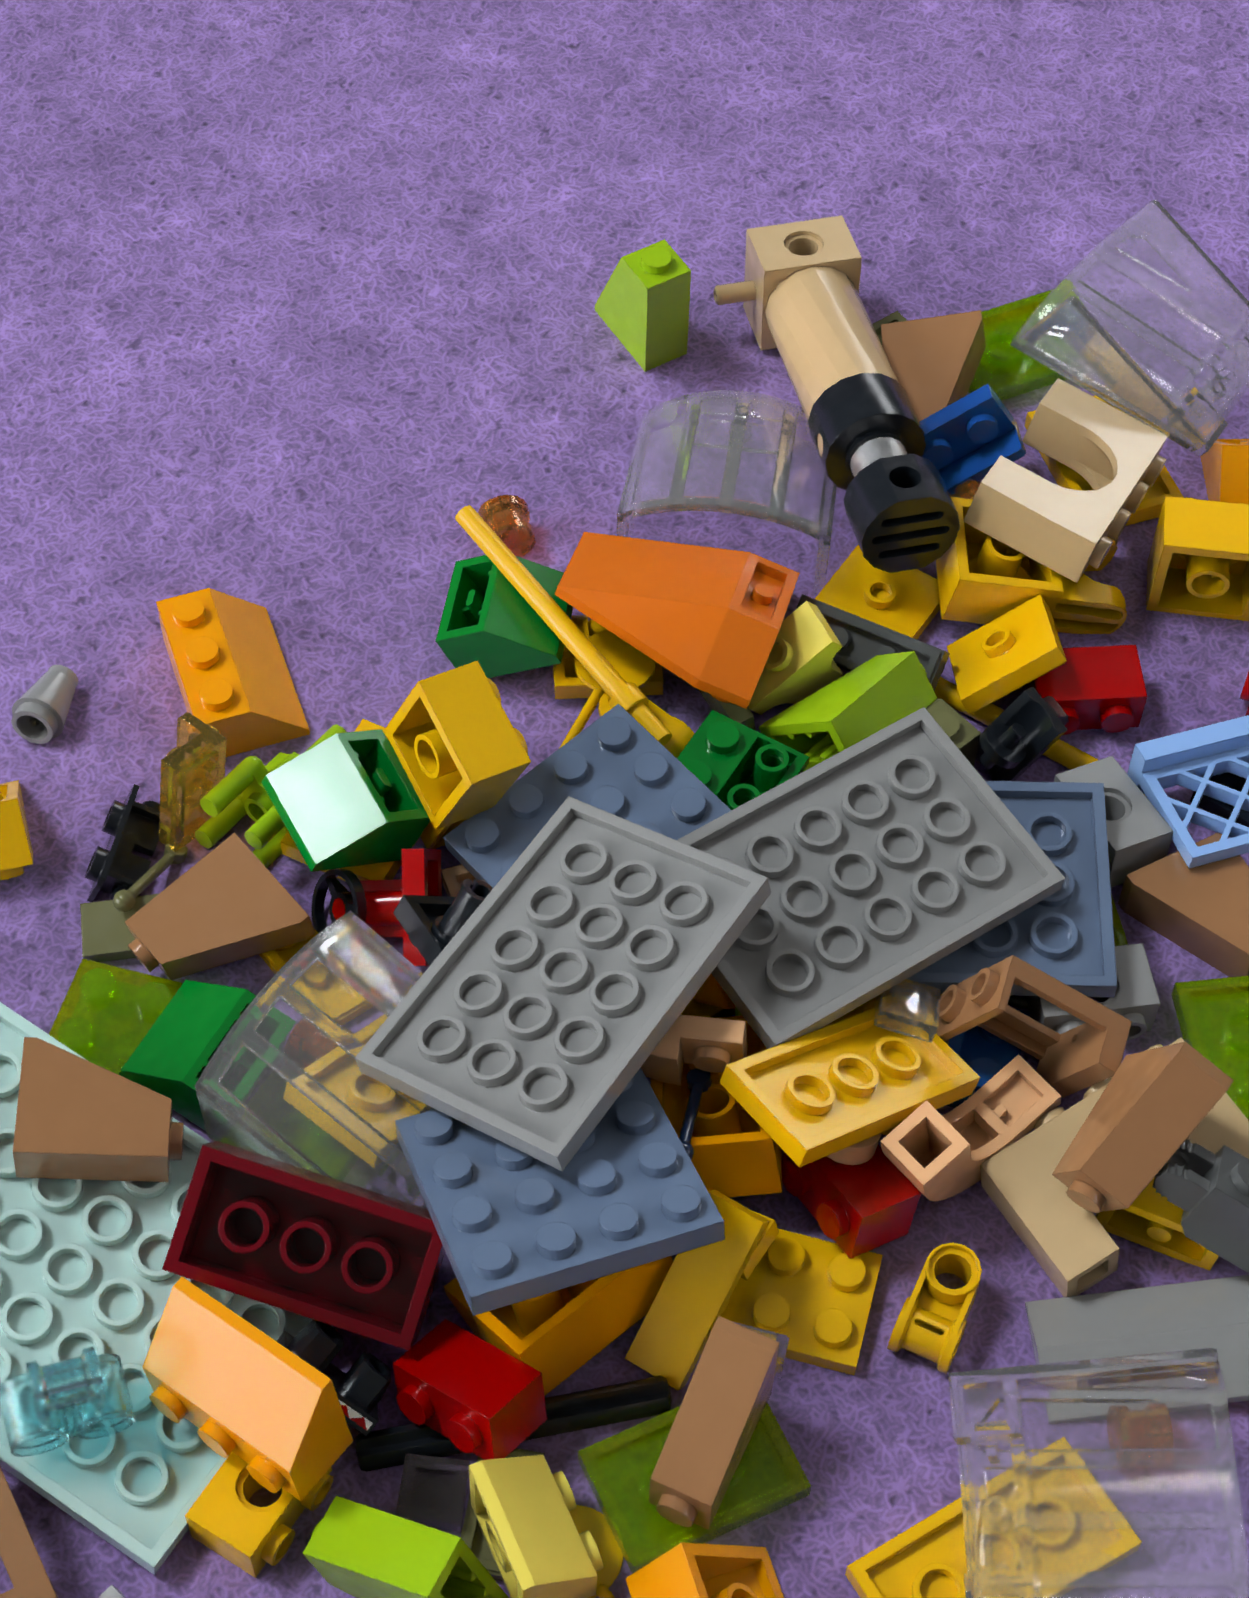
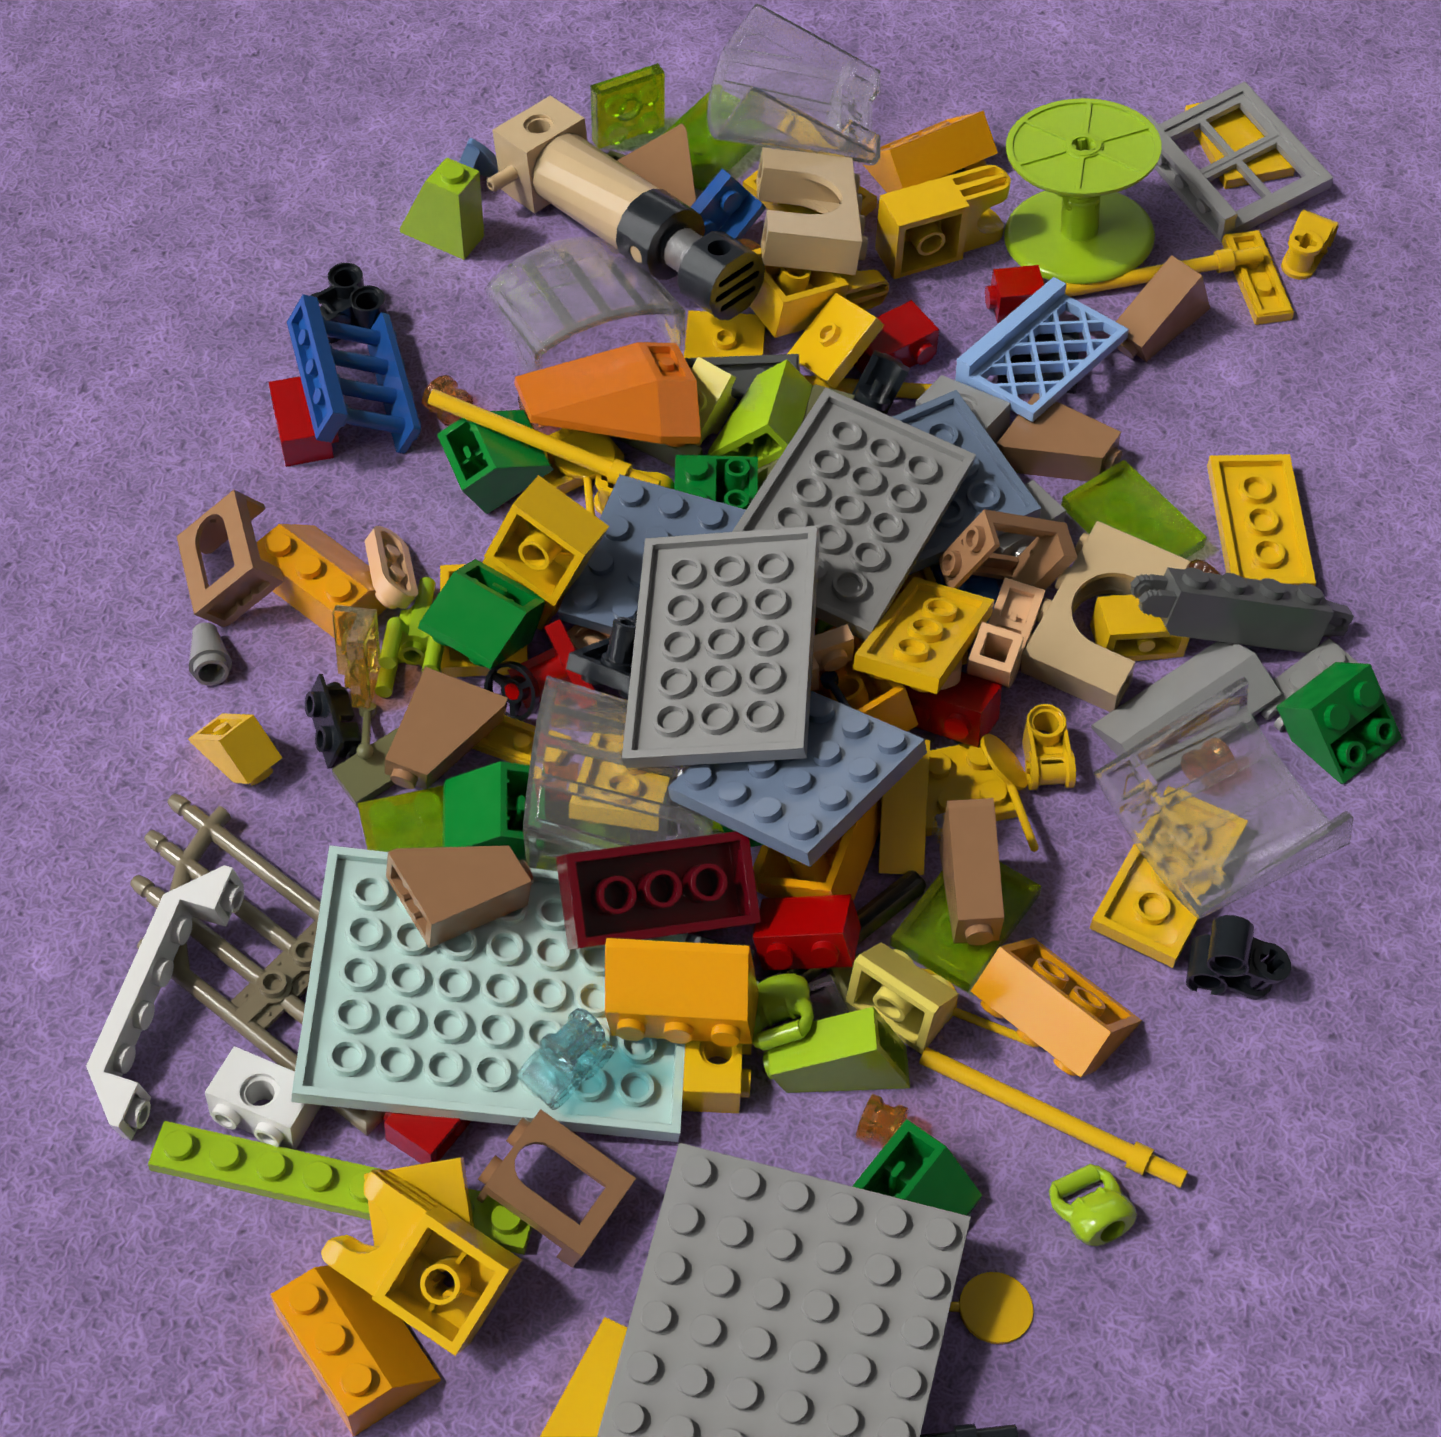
camera: 30 degrees left, 0 degrees up
(128, 637) = (249, 578): none -> medium nougat panel
(300, 696) = (390, 568): none -> light nougat plate
(330, 479) = (295, 424): none -> red brick
(365, 448) = (326, 389): none -> blue fence
(374, 1463) = (778, 1000): none -> lime piece
(468, 369) = (348, 298): none -> black piece
(722, 257) = (479, 158): none -> medium blue tile
(872, 1307) = (1012, 773): none -> yellow piece
(909, 1010) = (928, 579): clear tile -> none
(942, 265) = (628, 106): none -> clear neon green plate
(1139, 1125) = (1113, 576): medium nougat slope -> none

